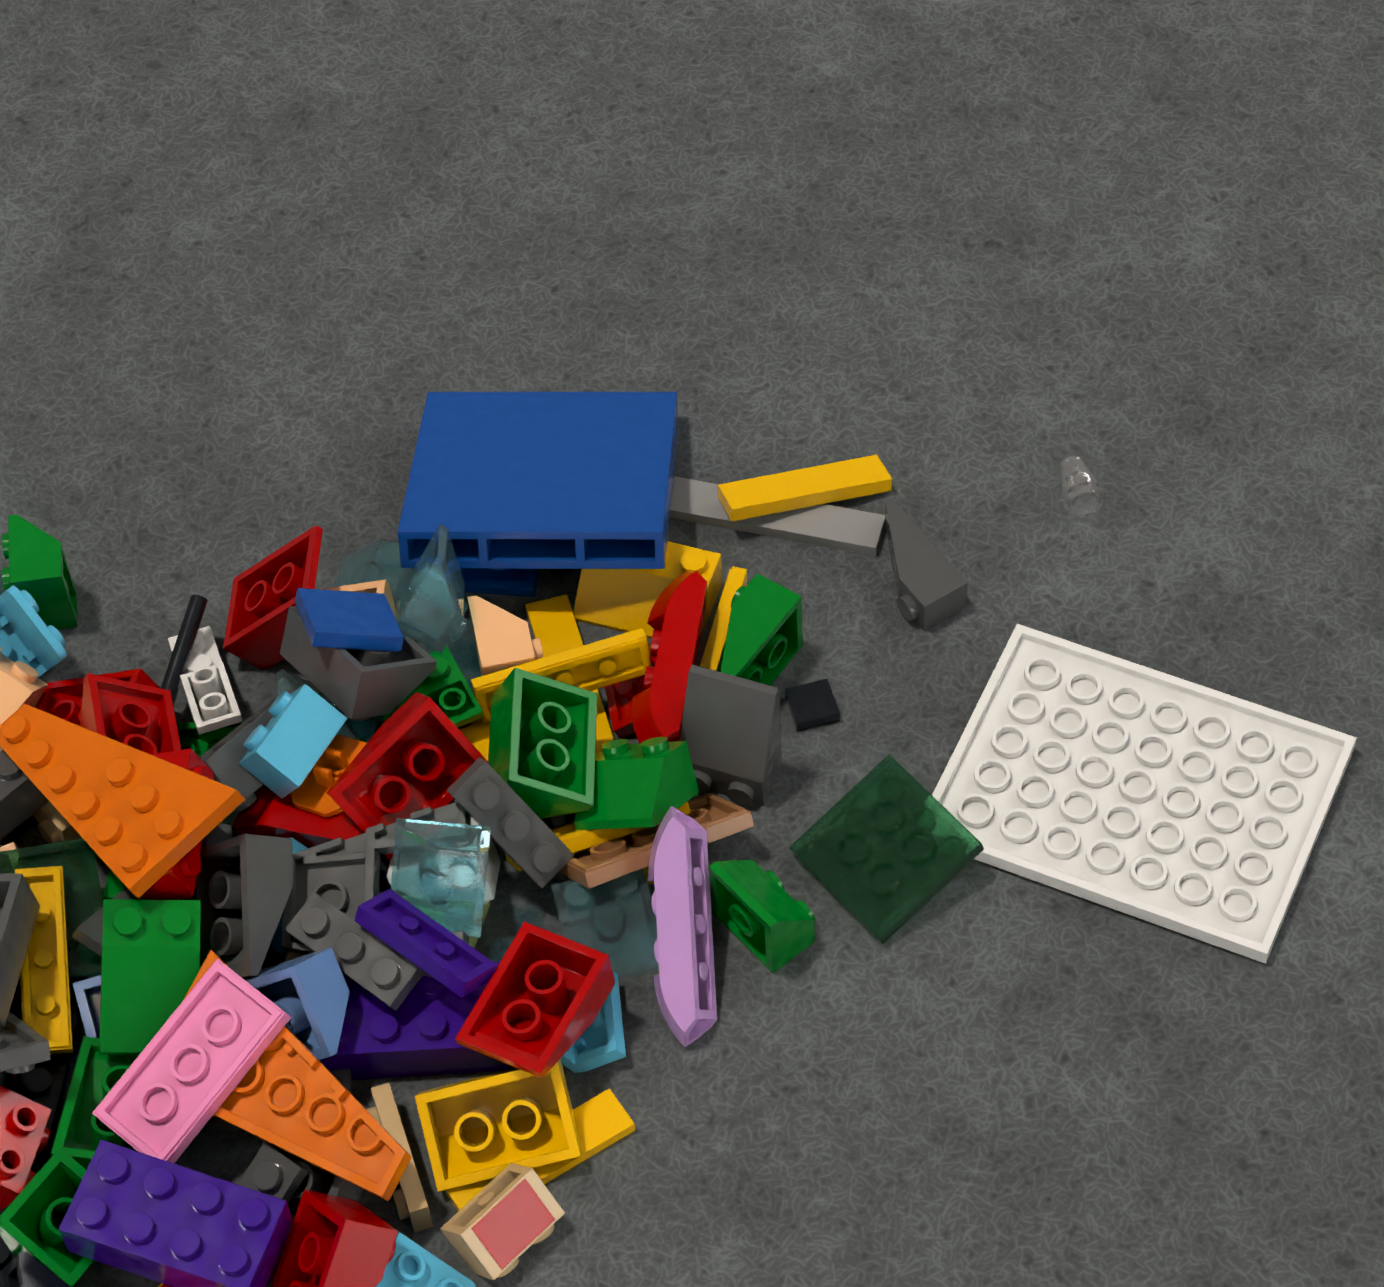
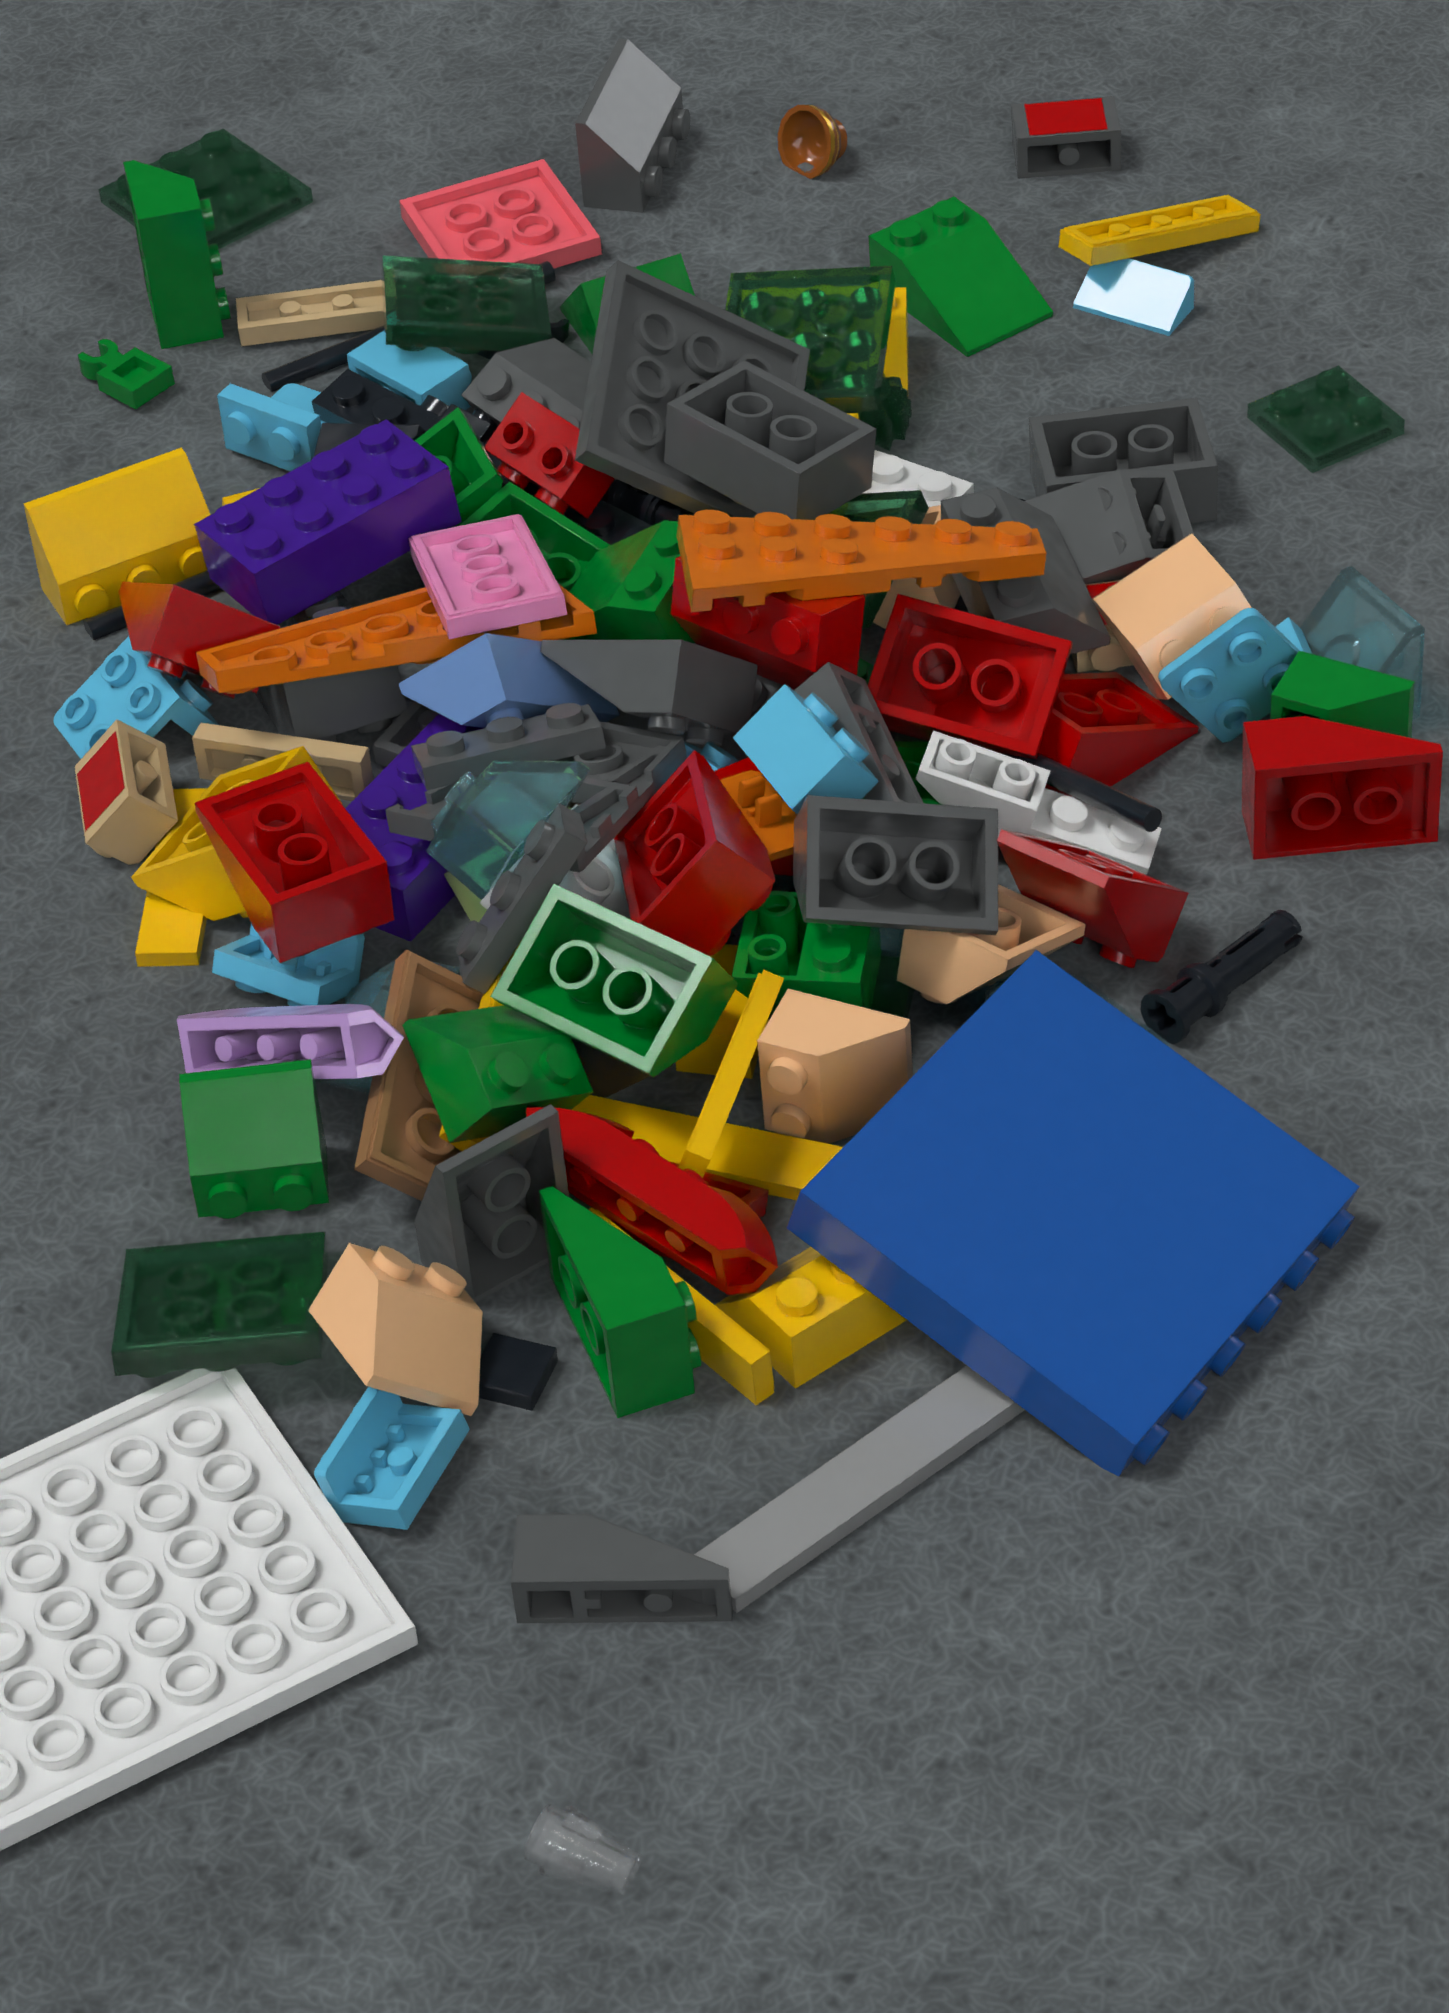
camera: 125 degrees right, 10 degrees down
(107, 559) = (1336, 787): none -> red slope
(259, 547) = (1205, 987): none -> black pin
(349, 620) = (924, 845): blue tile -> none
(425, 942) = (425, 771): dark purple plate -> none
(432, 597) = (919, 971): clear light blue slope -> none
(804, 487) = (853, 1525): yellow tile -> none
(847, 733) = (404, 1326): none -> light nougat slope
(920, 706) = (388, 1459): none -> medium azure bracket

